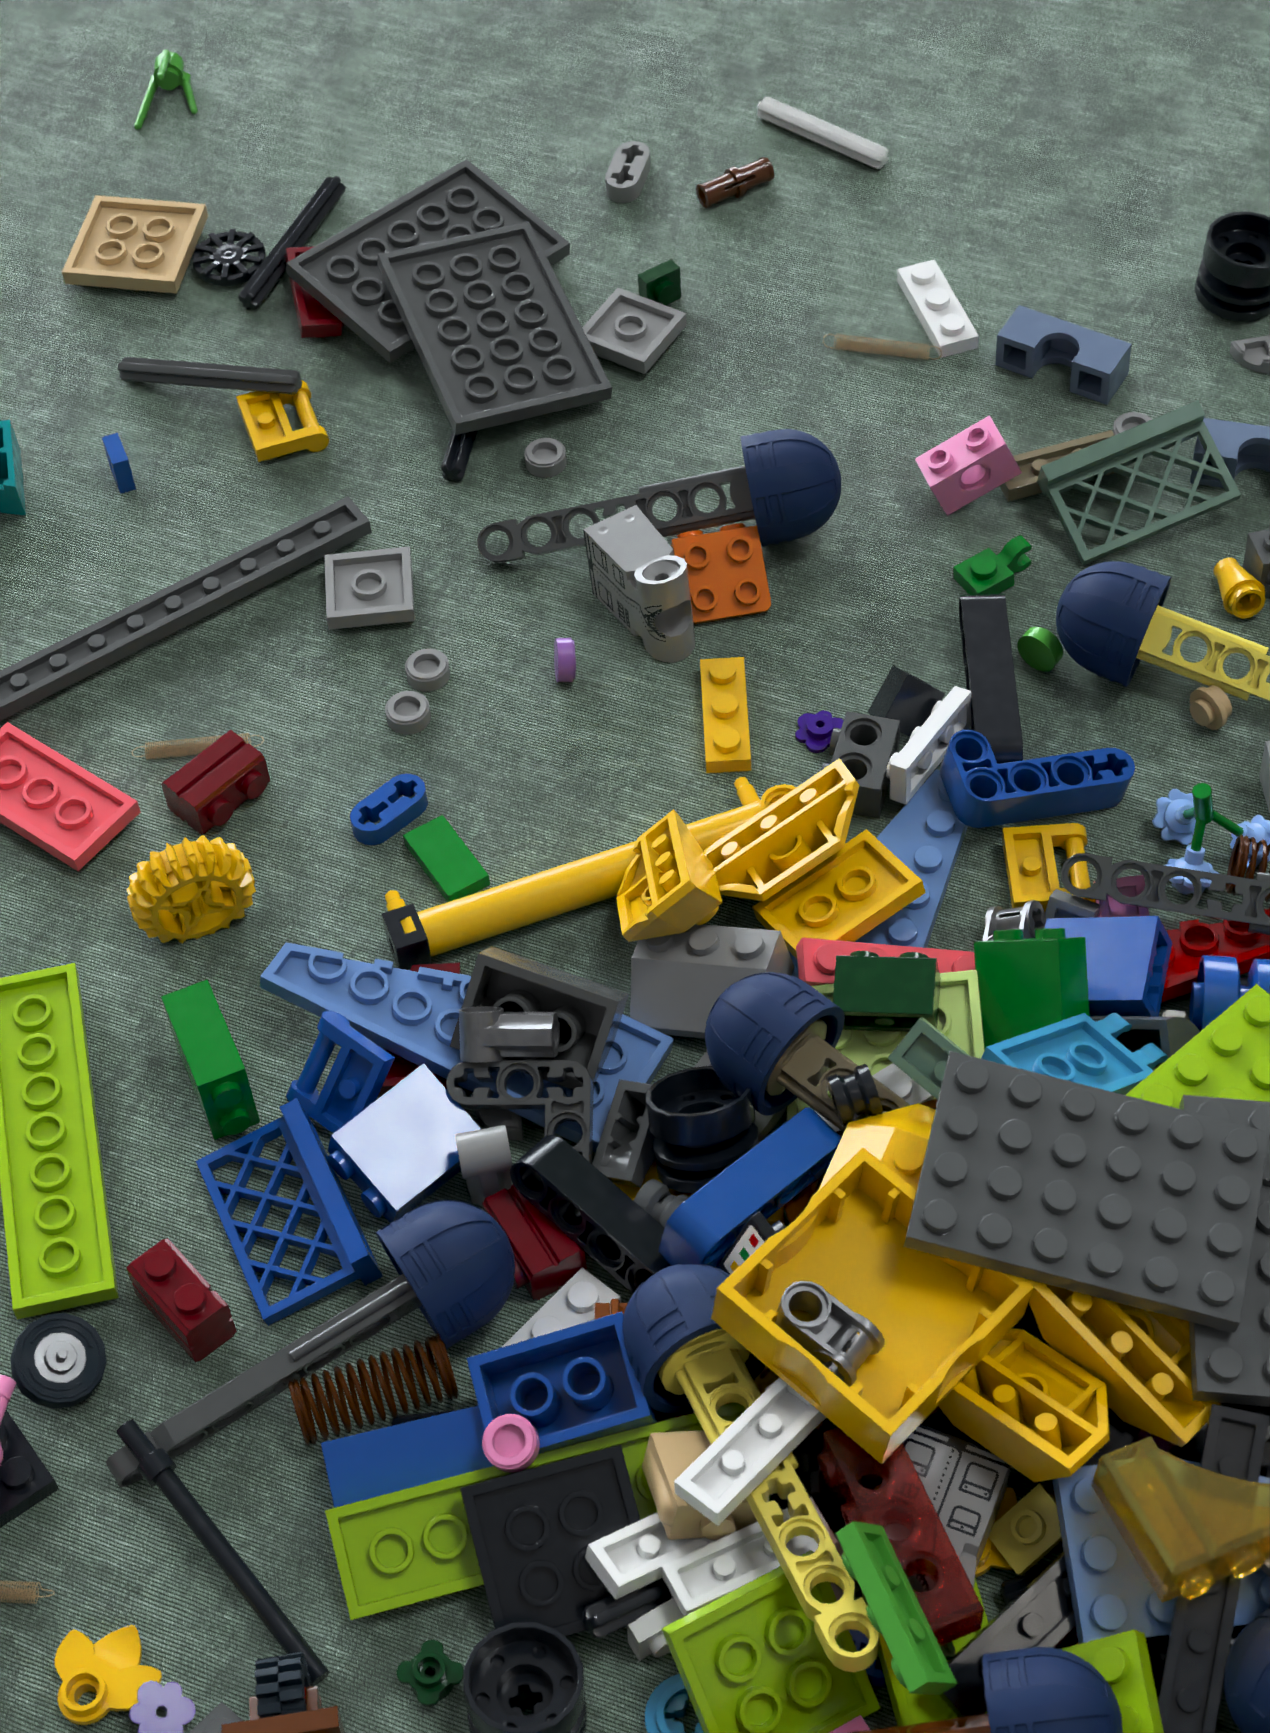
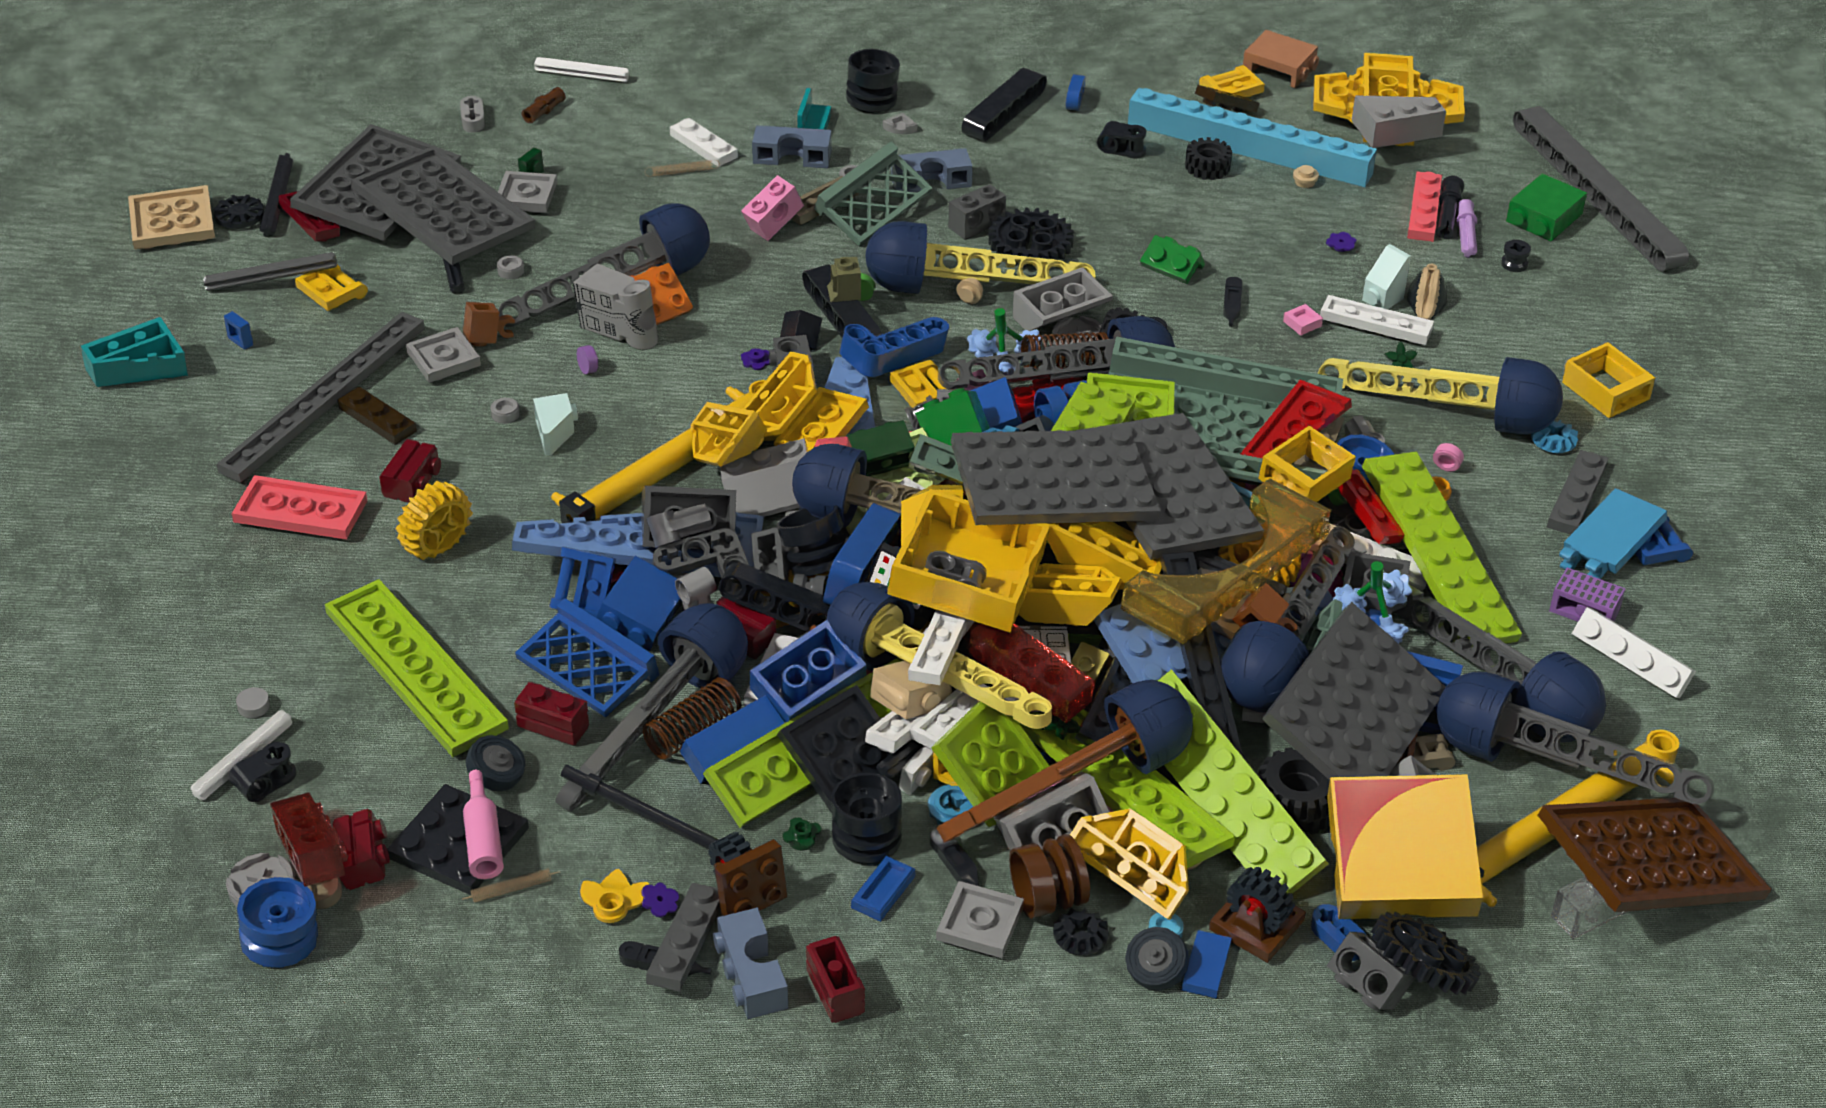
camera: 30 degrees left, 10 degrees down
(168, 75) = (133, 124): bright green plant -> none
(181, 746) = (372, 466): tan piece -> none
(211, 1059) = (500, 595): green brick -> none
(230, 666) = (377, 415): none -> dark brown plate
(389, 809) = (520, 464): blue beam -> none
(427, 670) = (503, 386): light grey tile -> none
(445, 552) = (483, 322): none -> dark orange brick
(446, 859) = (573, 472): green tile -> none
(459, 759) = (554, 420): none -> light aqua slope
(510, 1443) = (796, 701): bright pink tile -> none
(725, 715) = (697, 364): yellow plate -> none
(854, 1094) = (897, 488): black wheel -> none
(895, 1609) = (1052, 689): bright green plate -> none
(928, 745) = (826, 344): white plate -> none
(991, 572) = (810, 259): green plate -> none
(1003, 639) = (845, 280): none -> olive window
(1122, 305) = (812, 115): none -> teal panel
(1239, 590) = (954, 233): yellow cone -> none

